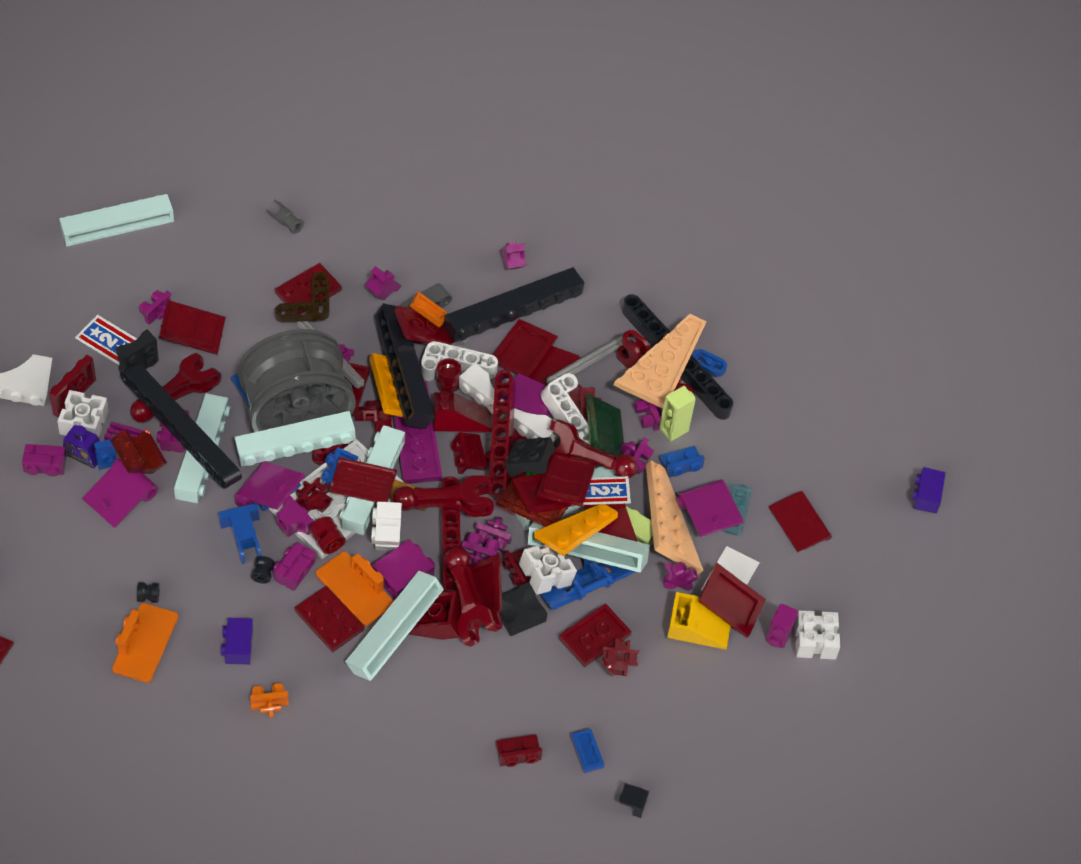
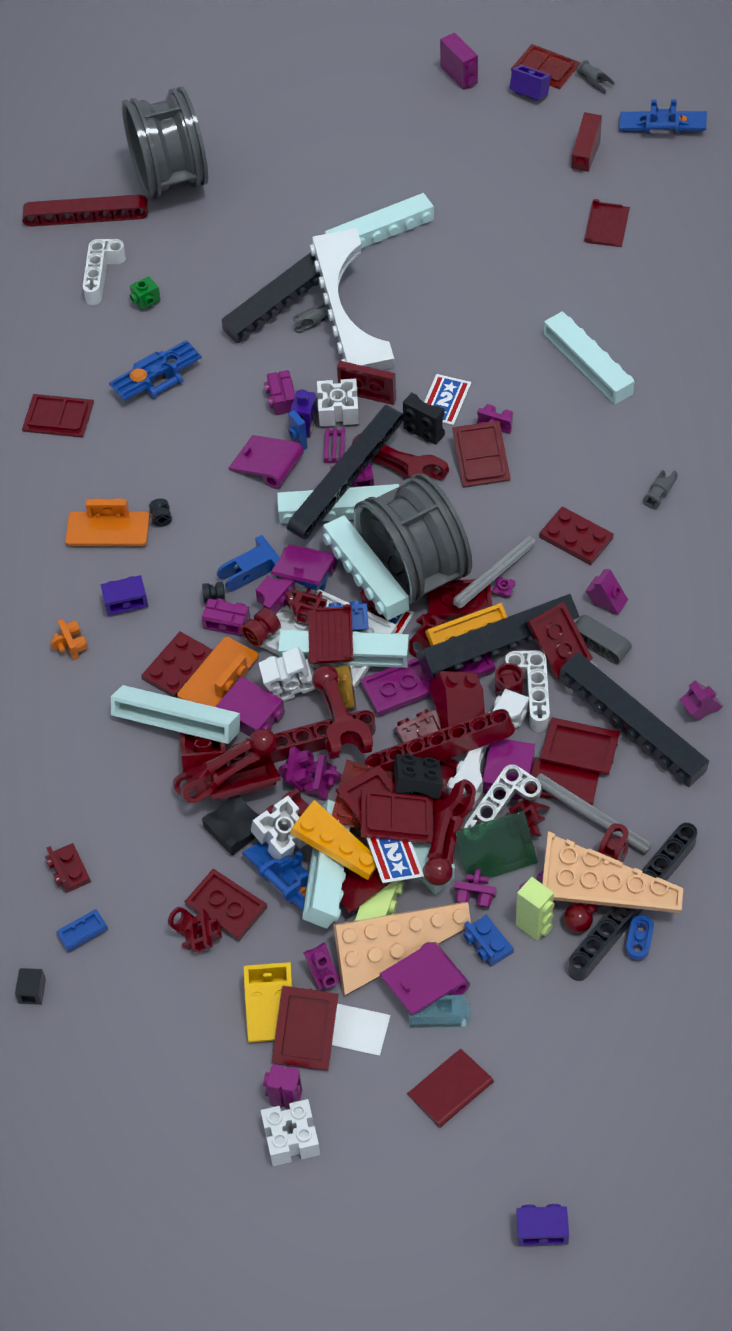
camera: 85 degrees right, 0 degrees up
(138, 453) = (303, 450): clear red panel -> none
(311, 307) = (545, 540): dark brown beam -> none
(428, 309) = (583, 636): orange tile -> none

